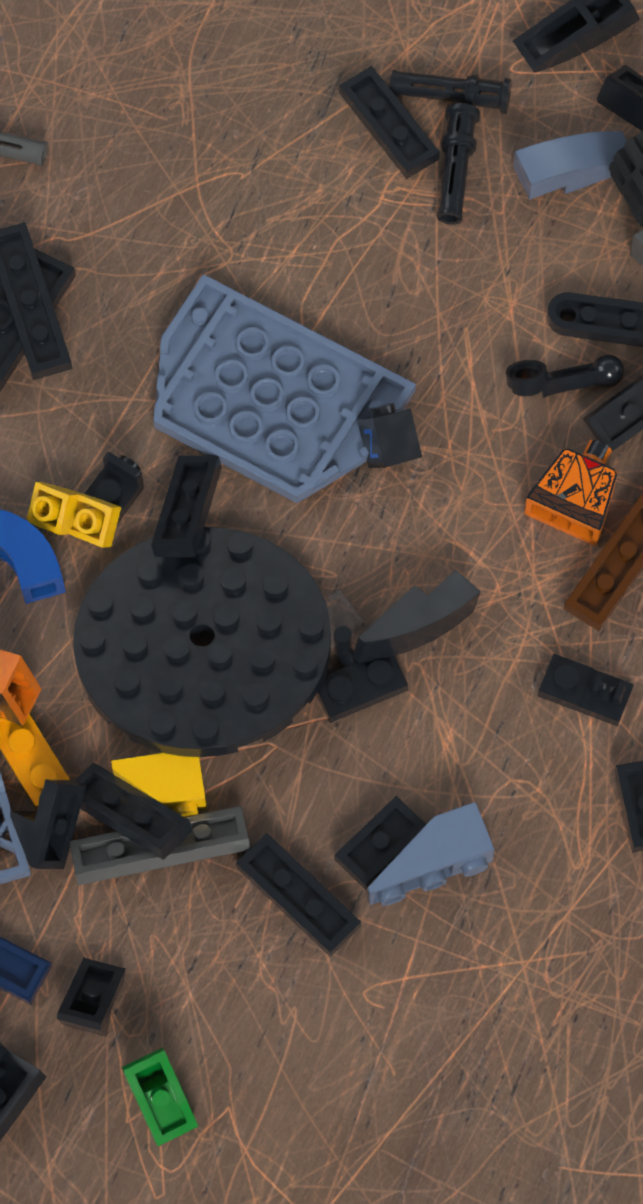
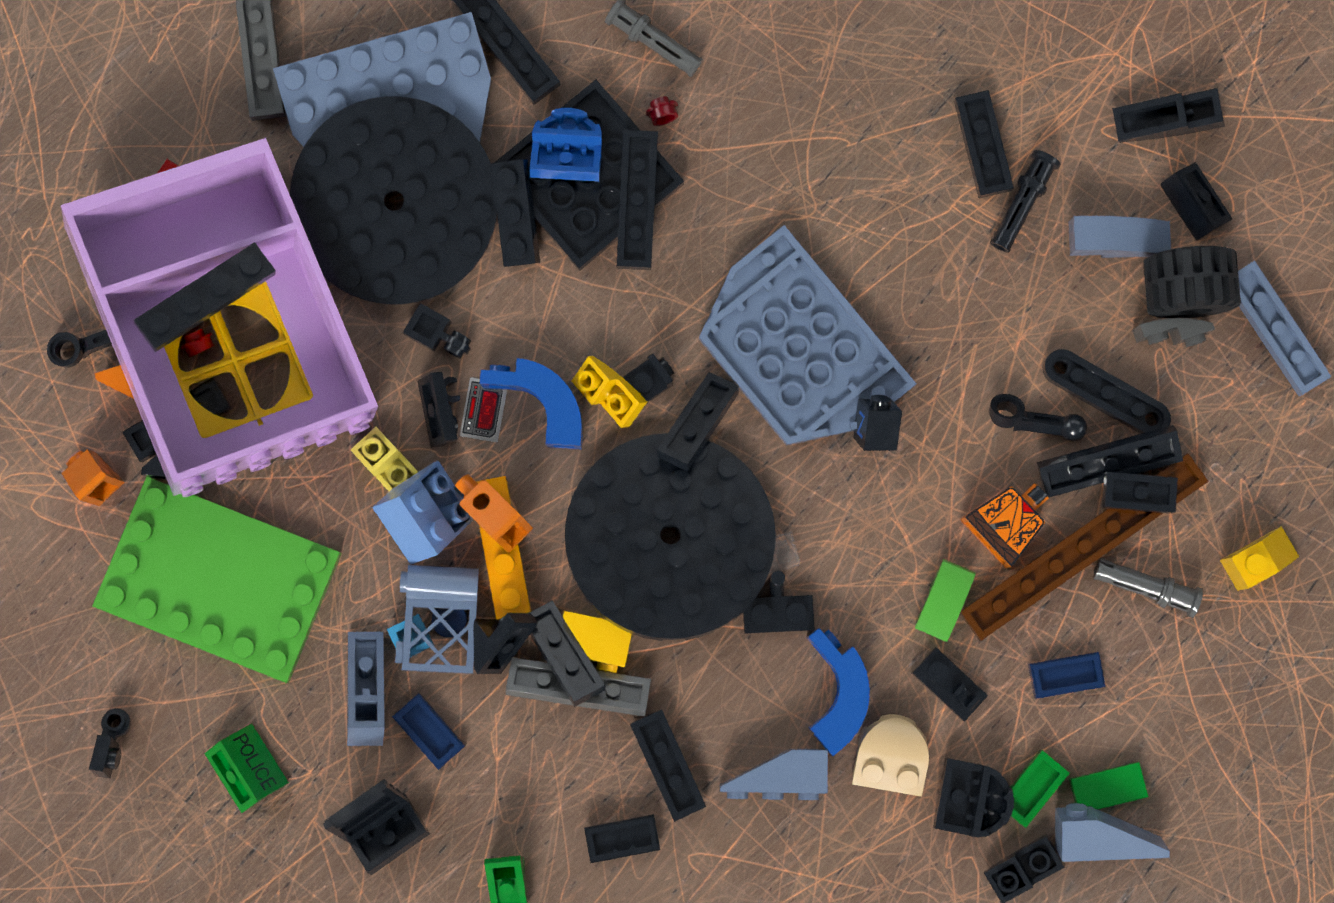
camera: 20 degrees right, 15 degrees up
(23, 208) = (662, 111): none -> dark red plate
(91, 997) = (484, 788): black slope -> none
(276, 997) = (622, 838): none -> black plate
(379, 842) = (745, 748): black plate -> none
(402, 84) = (1060, 141): black pin -> none
(418, 619) = (842, 583): black slope -> none
(476, 730) = (851, 701): none -> blue arch
(542, 600) = (945, 600): none -> bright green slope
(553, 789) = (892, 756): none -> tan slope

